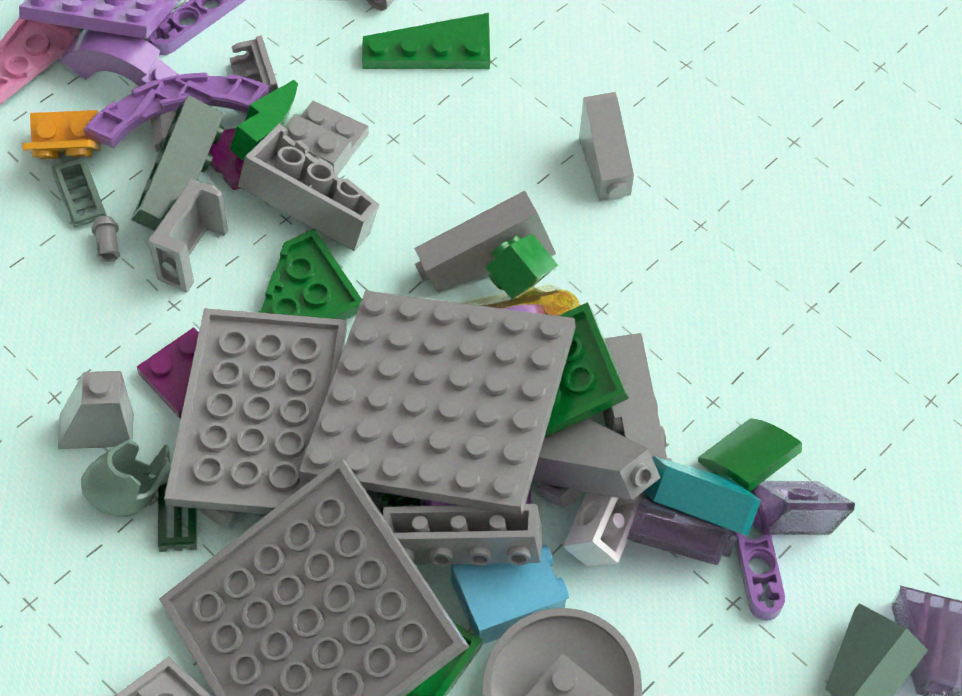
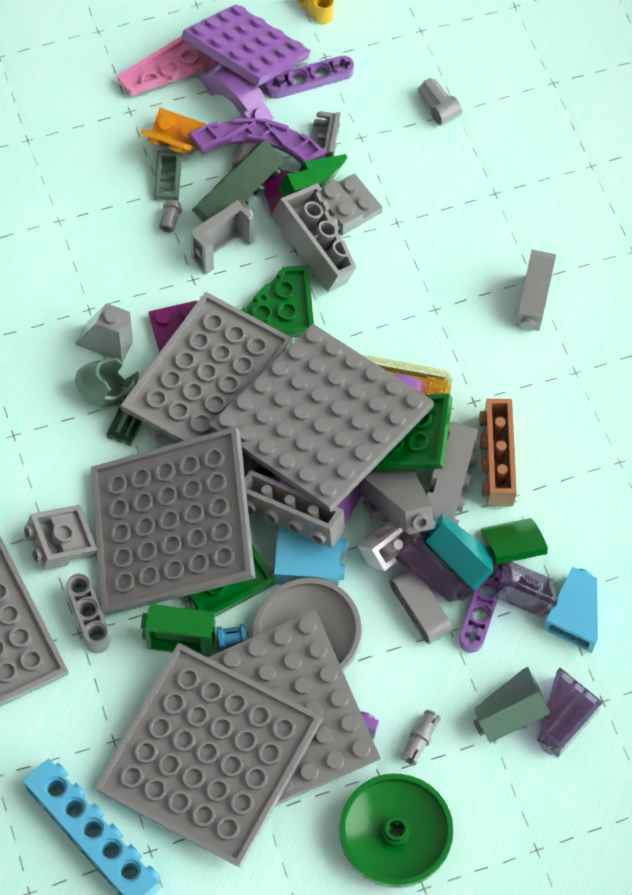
camera: 25 degrees right, 5 degrees up
(437, 45) = (462, 166): green wing -> none
(467, 248) = (415, 325): light grey slope -> none
(519, 265) = (425, 349): green brick -> none
(673, 354) = (499, 452): none -> nougat brick
(682, 587) = (421, 606): none -> light grey beam
(881, 511) = (576, 611): none -> medium azure slope

